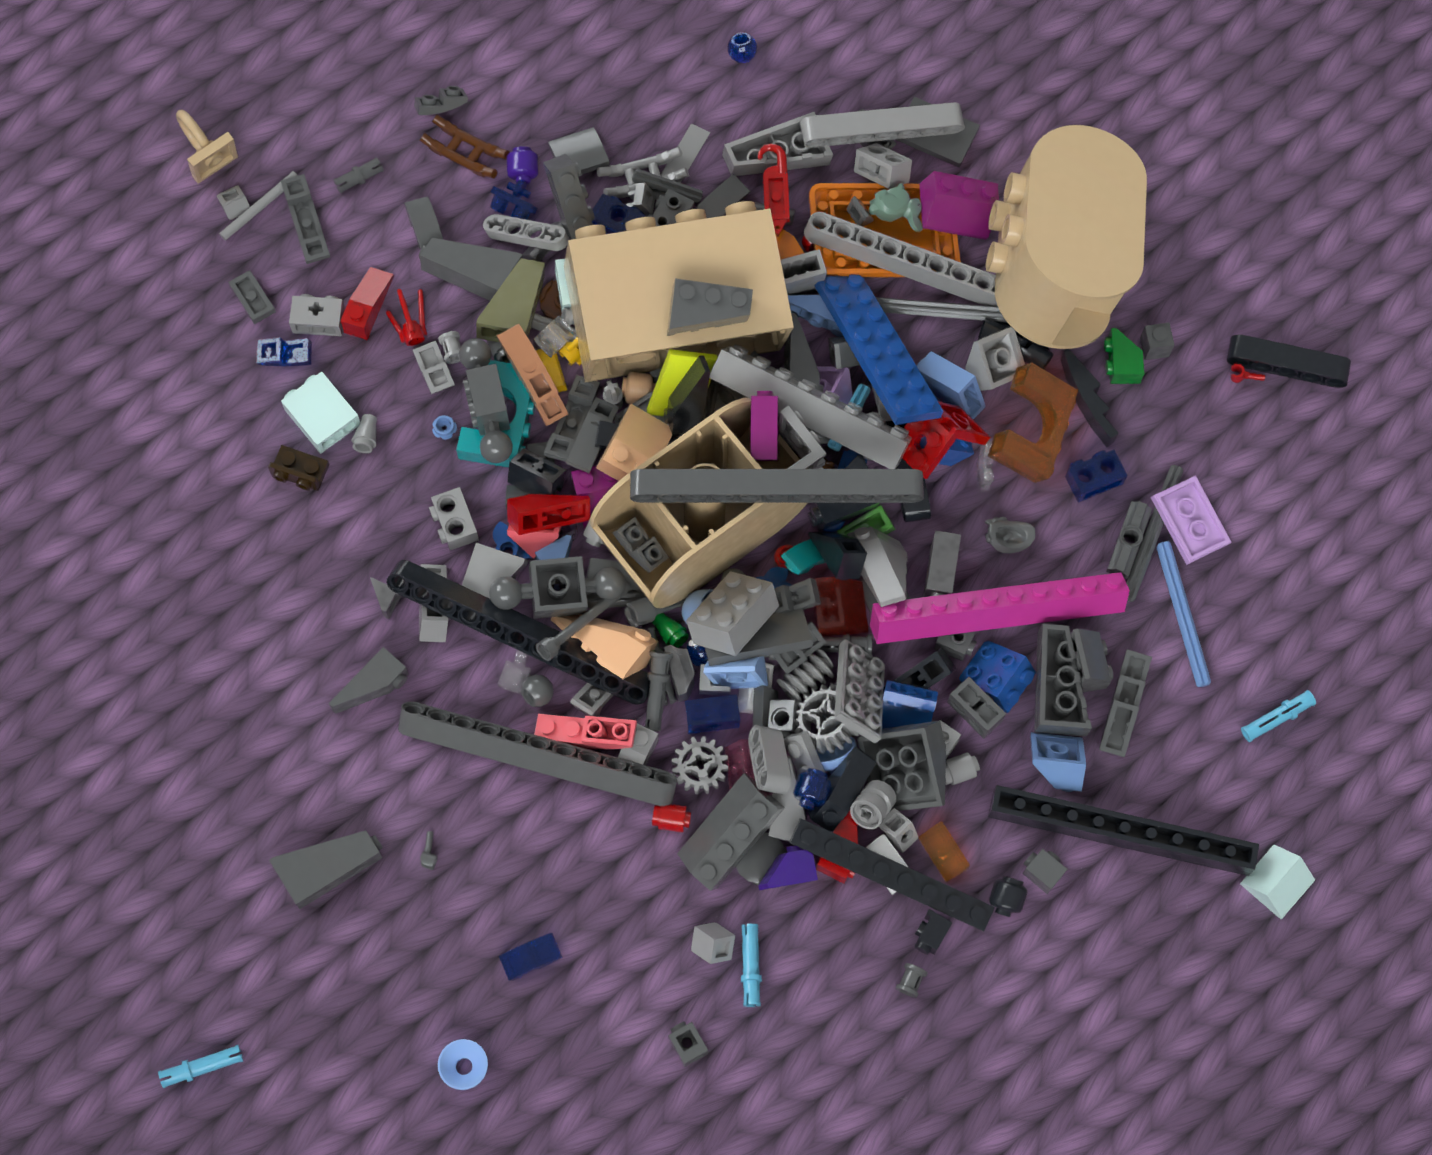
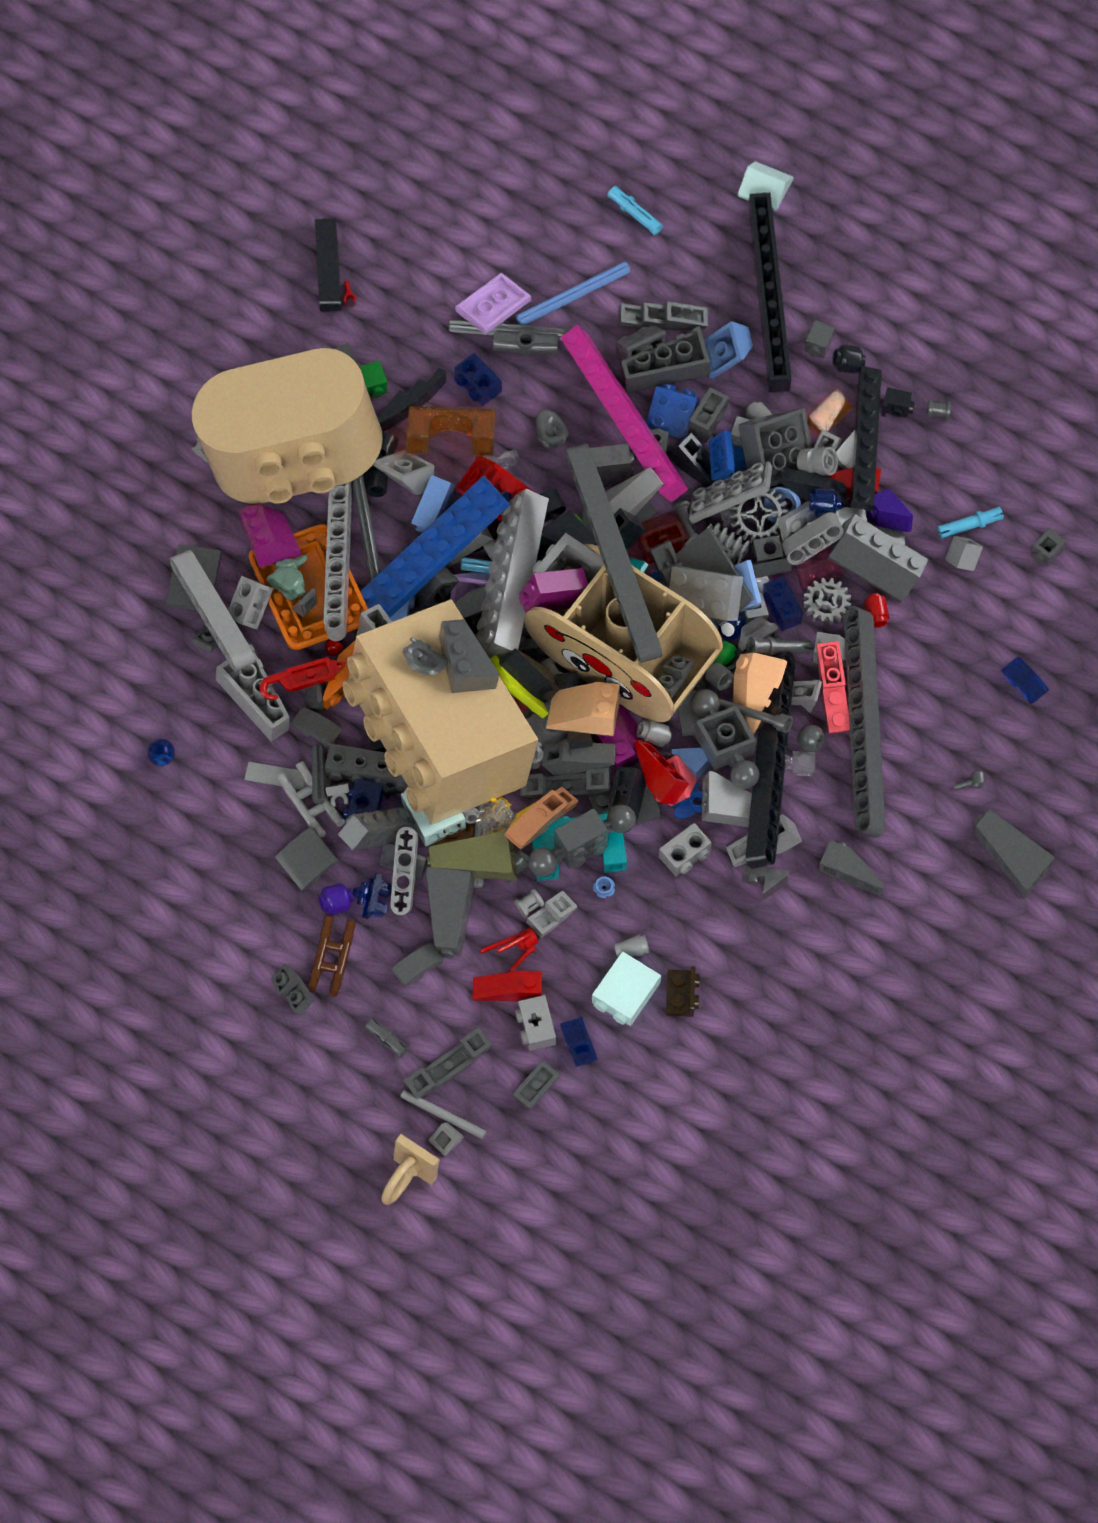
camera: 105 degrees left, 5 degrees down
(719, 263) = (423, 658): none -> dark grey hat

